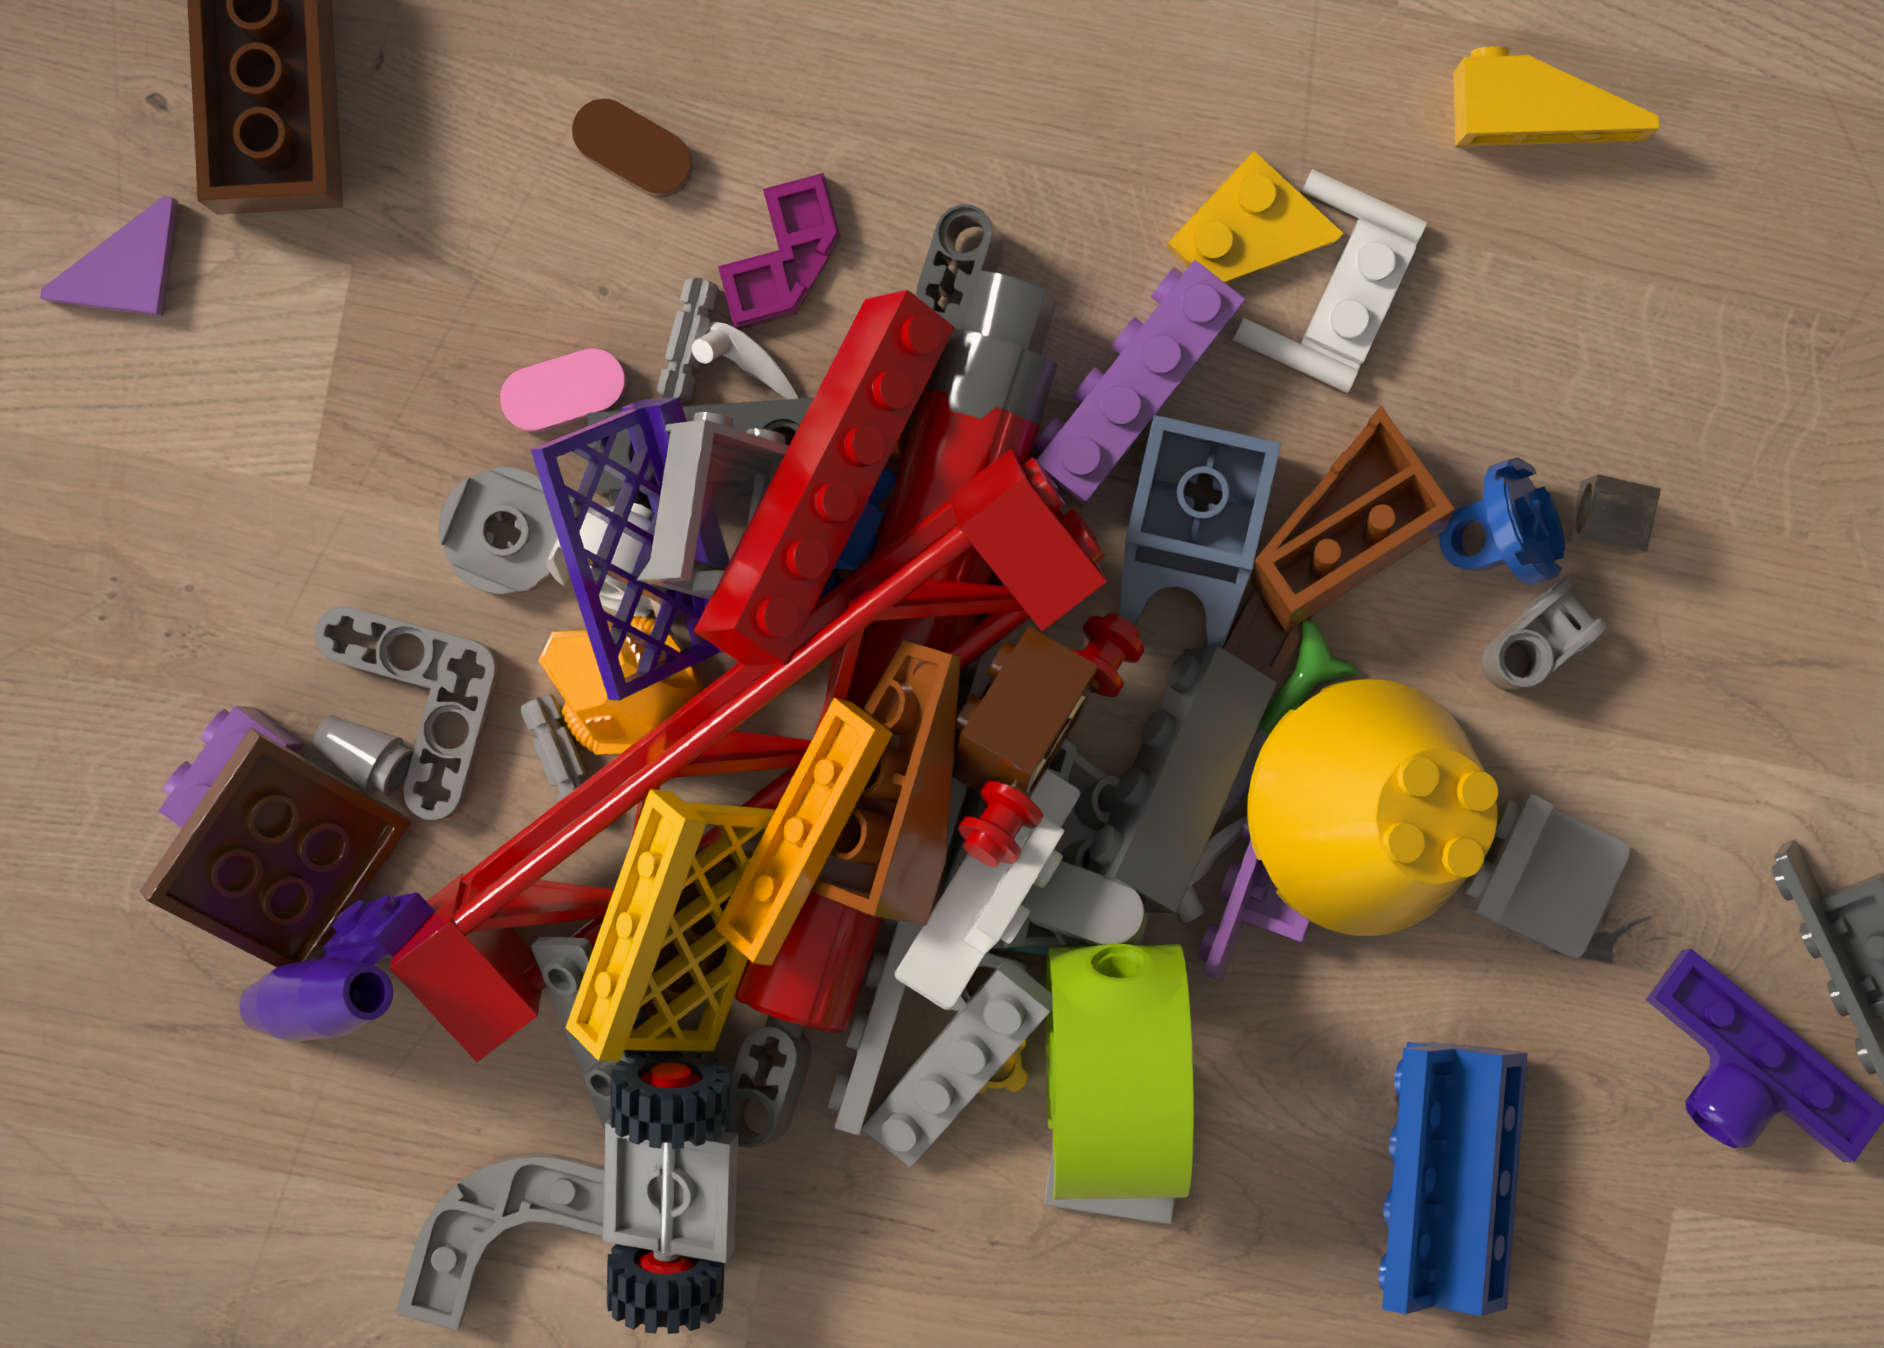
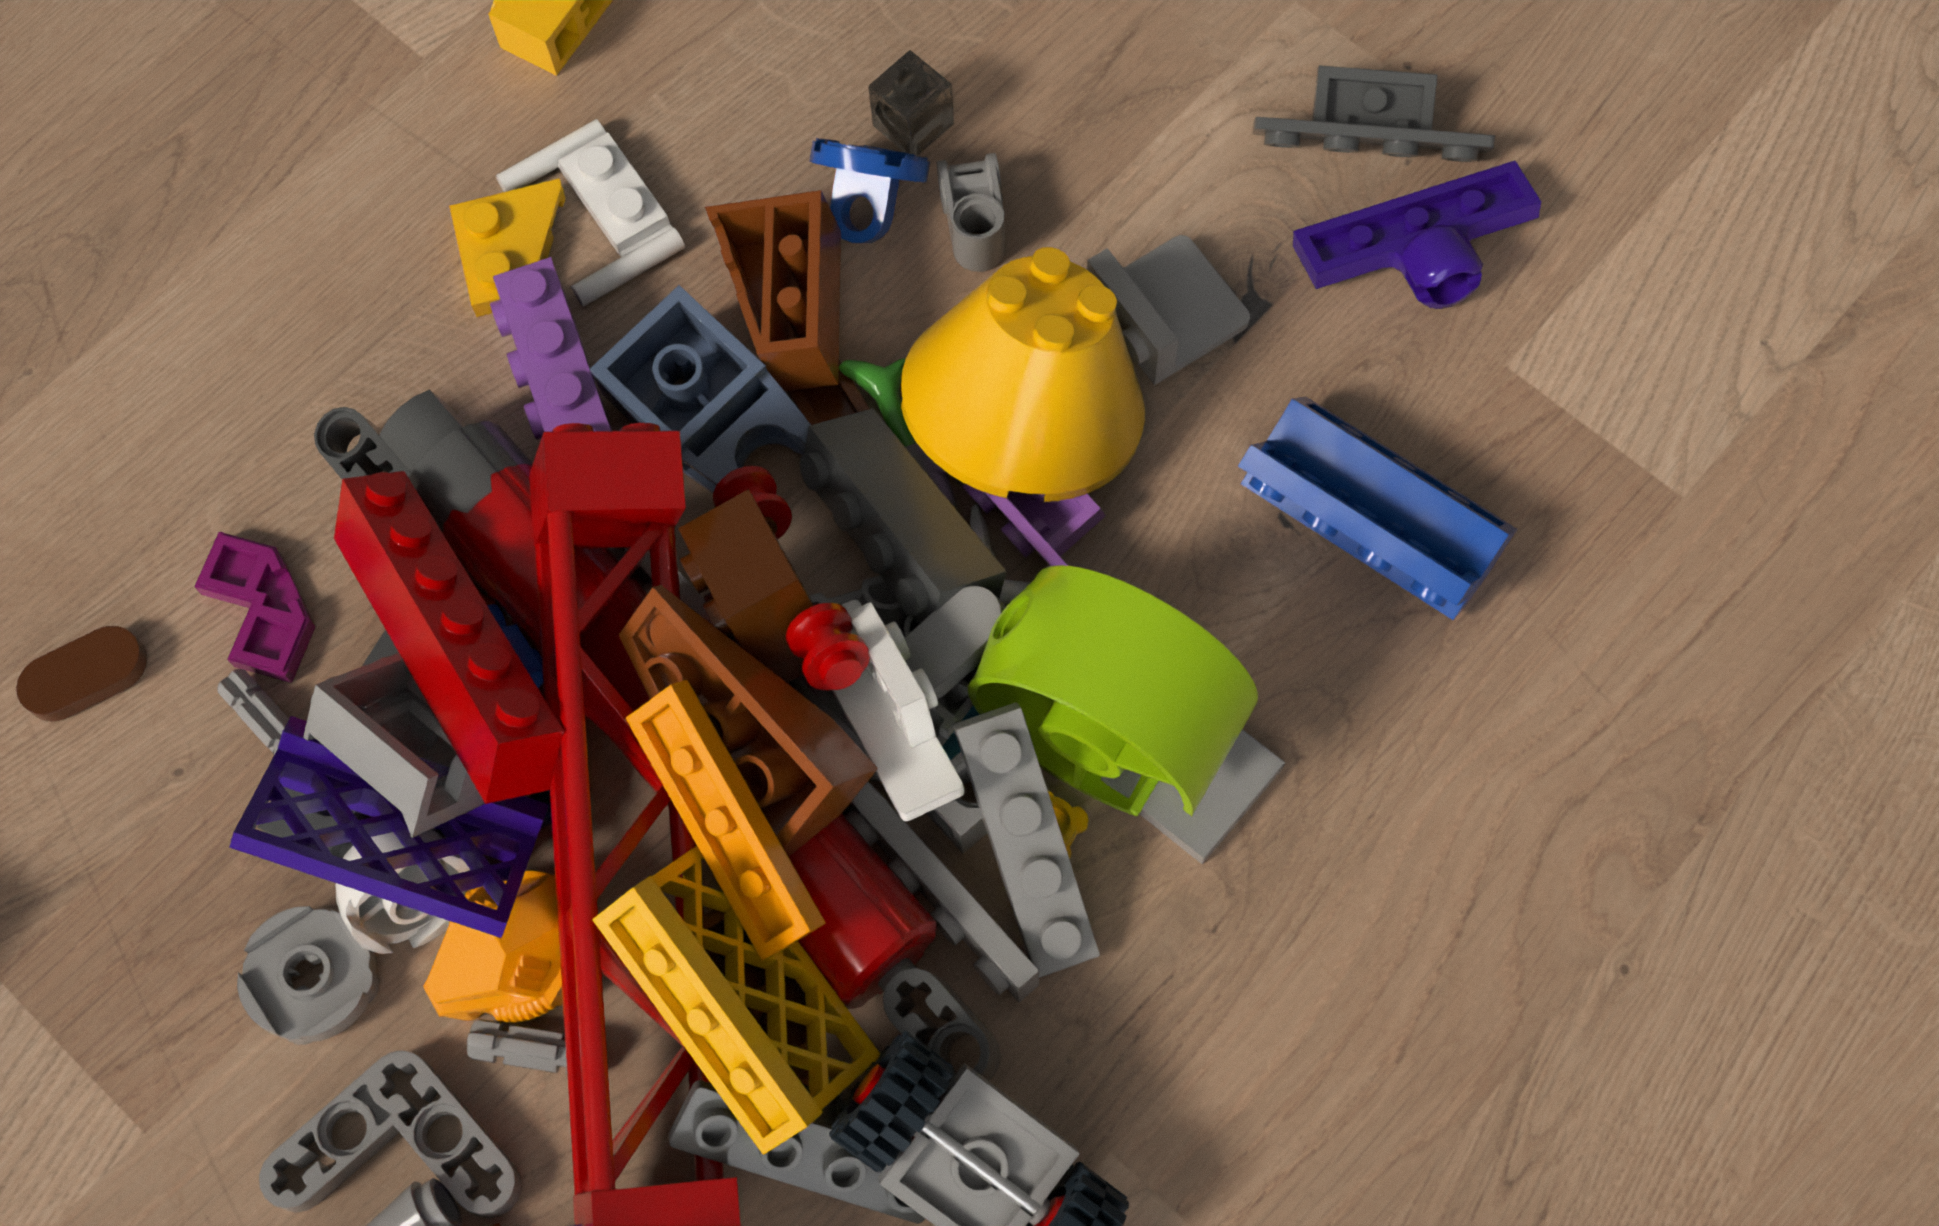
camera: 55 degrees left, 20 degrees down
(563, 390) = (218, 877): bright pink tile -> none
(743, 352) = (300, 684): white bar -> none

